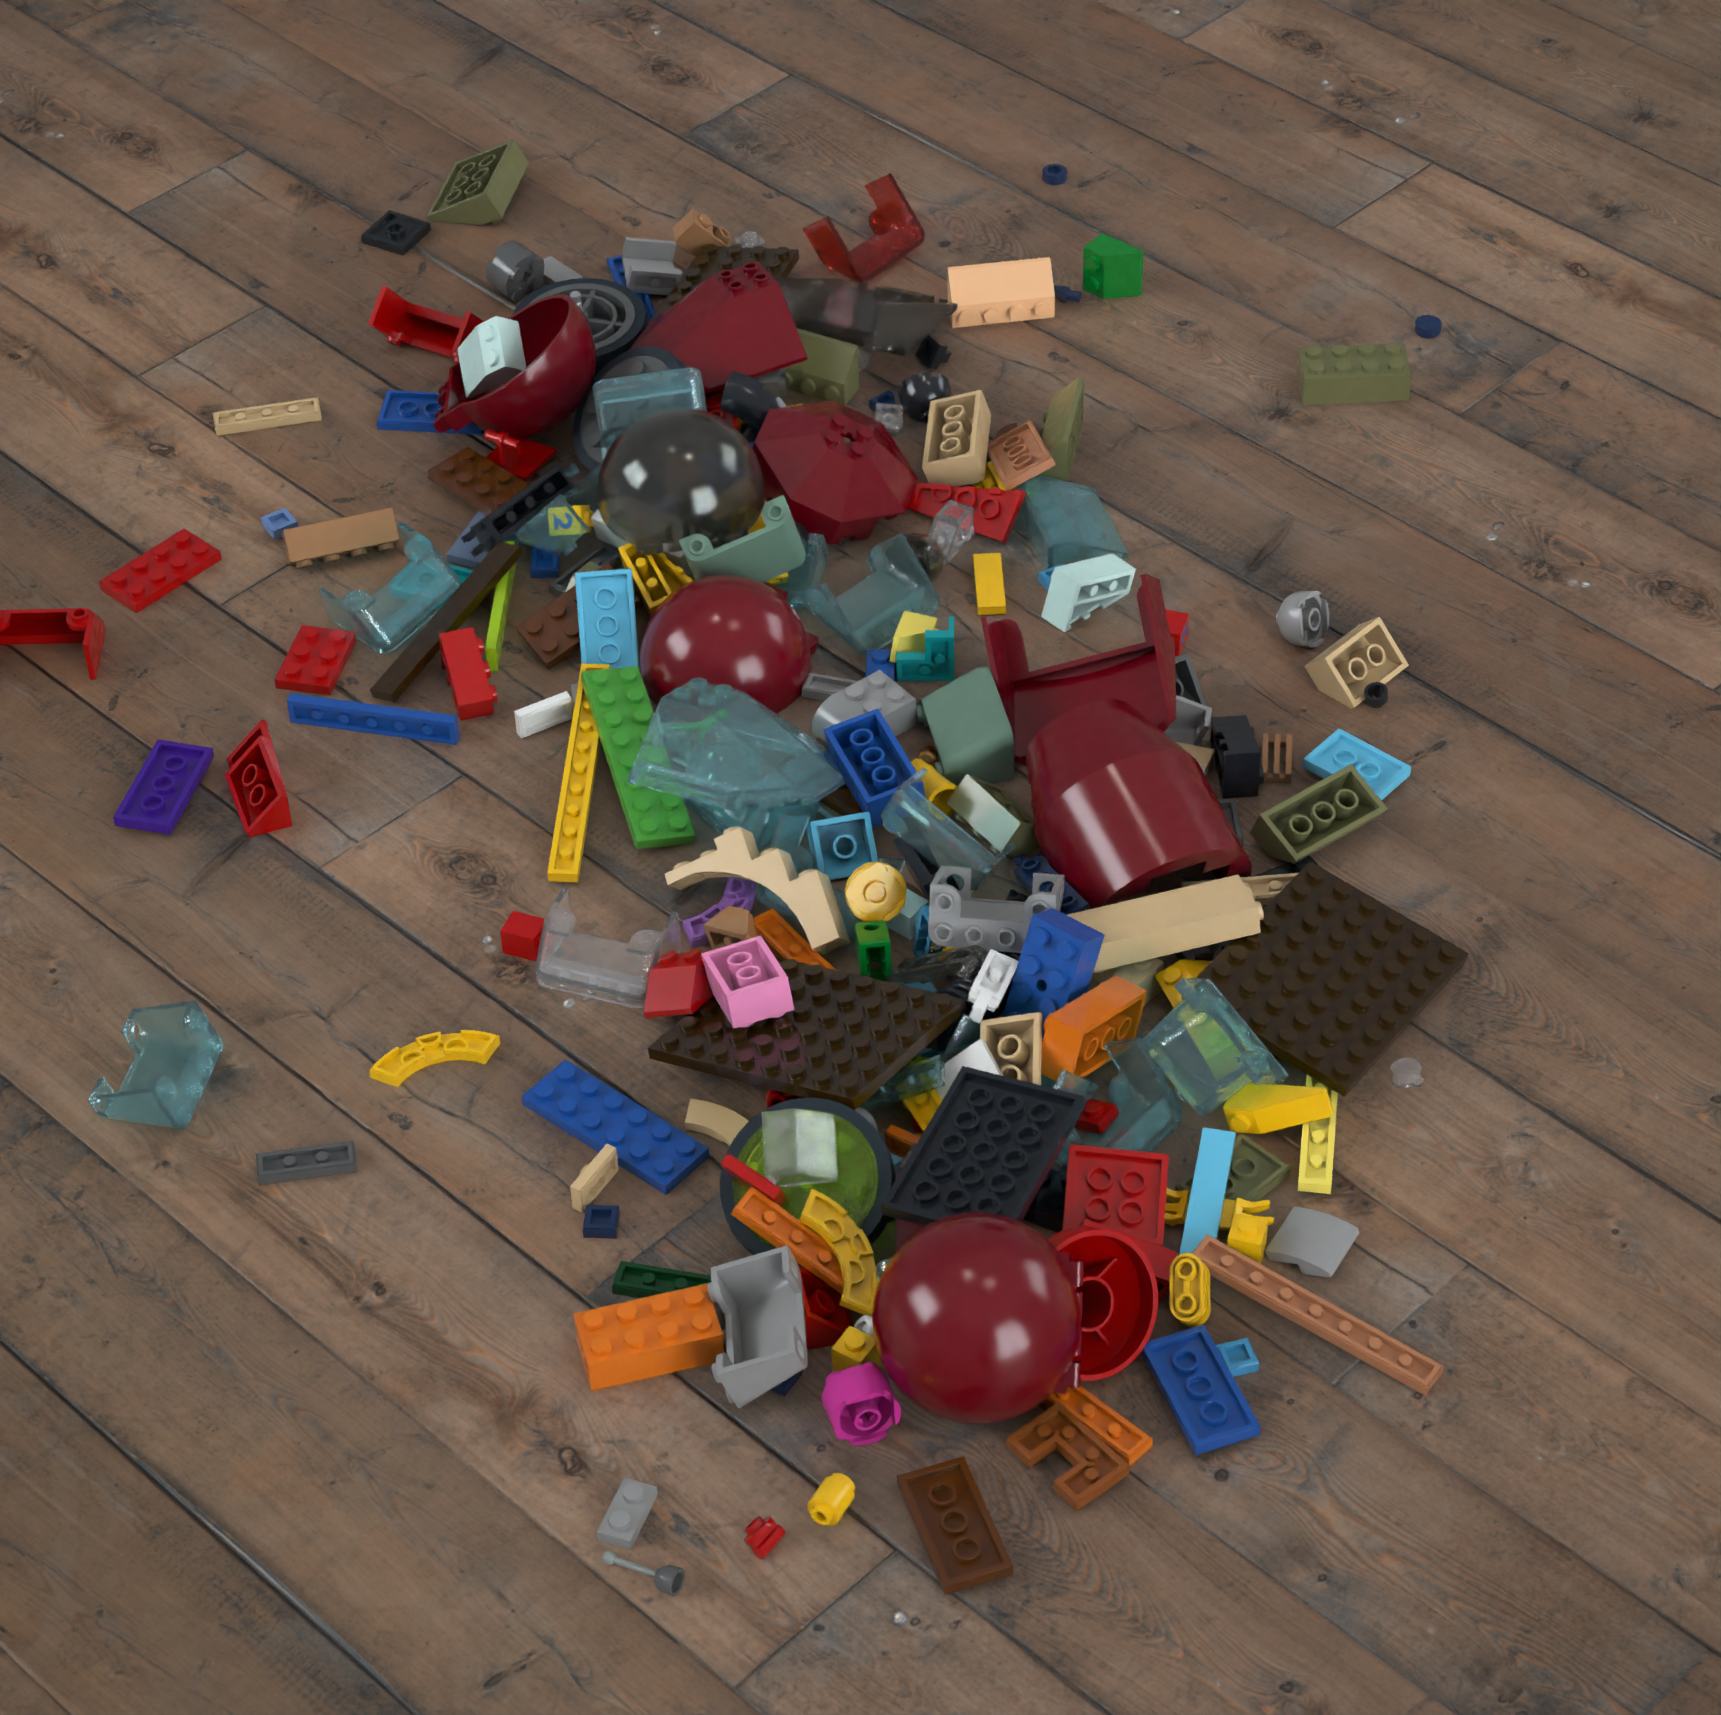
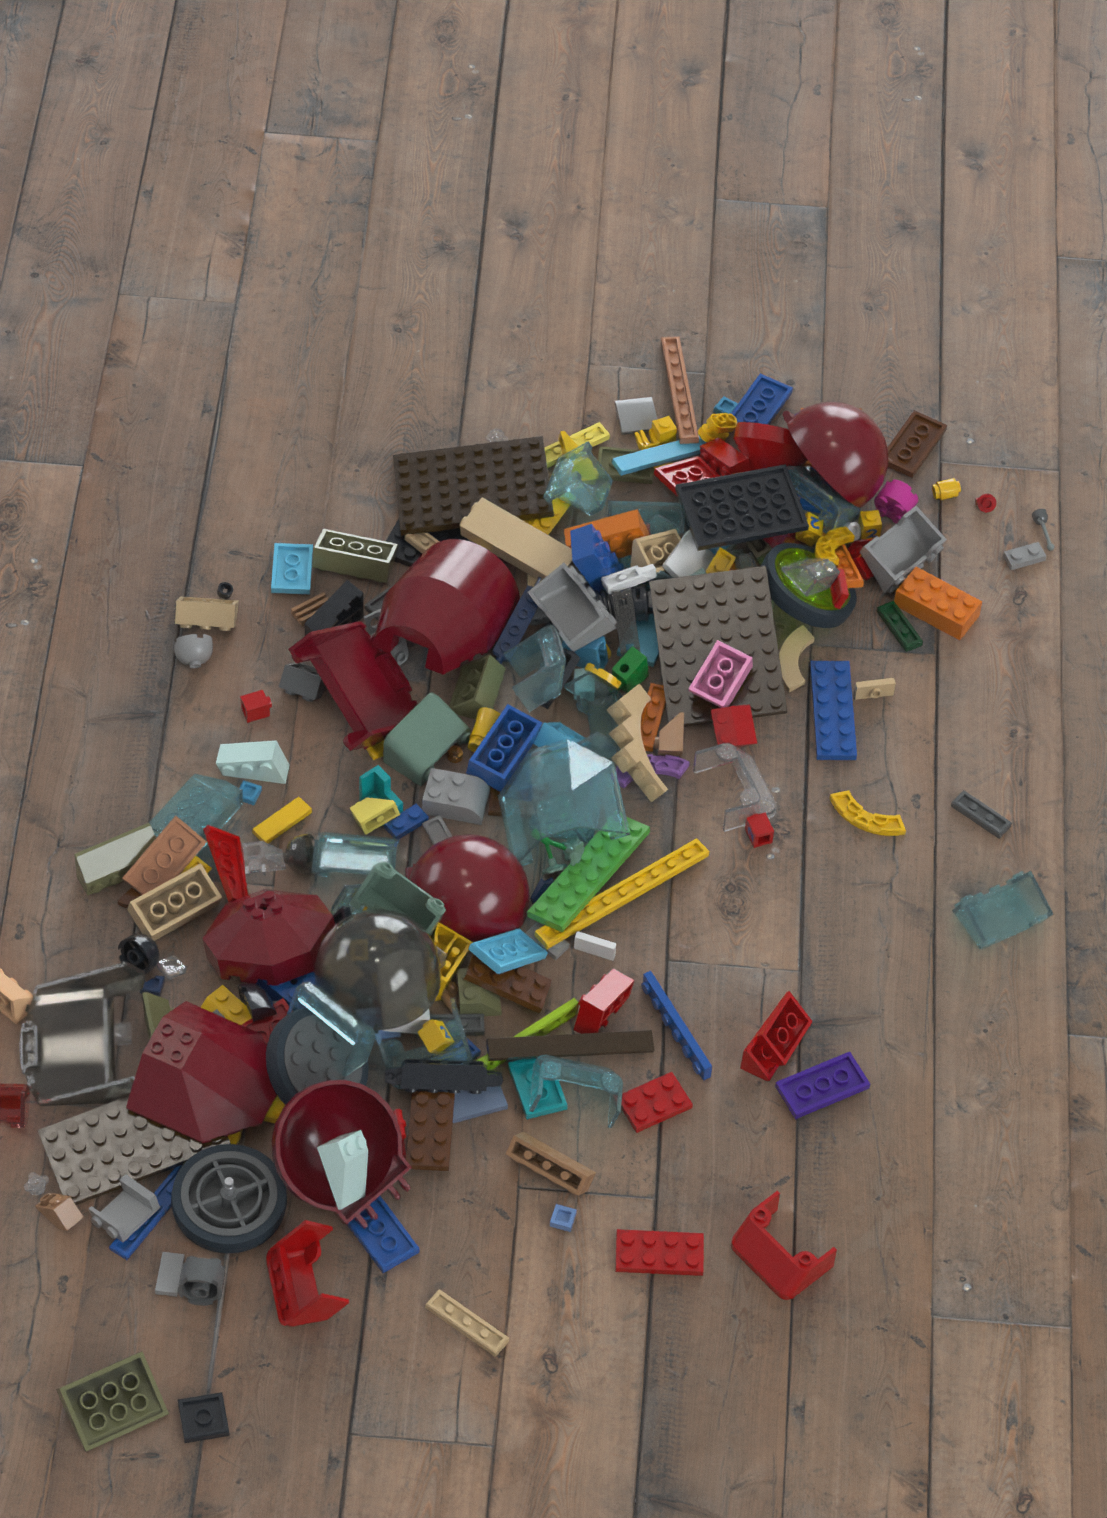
camera: 135 degrees left, 10 degrees up
(601, 1221) = (891, 671): dark blue tile -> none

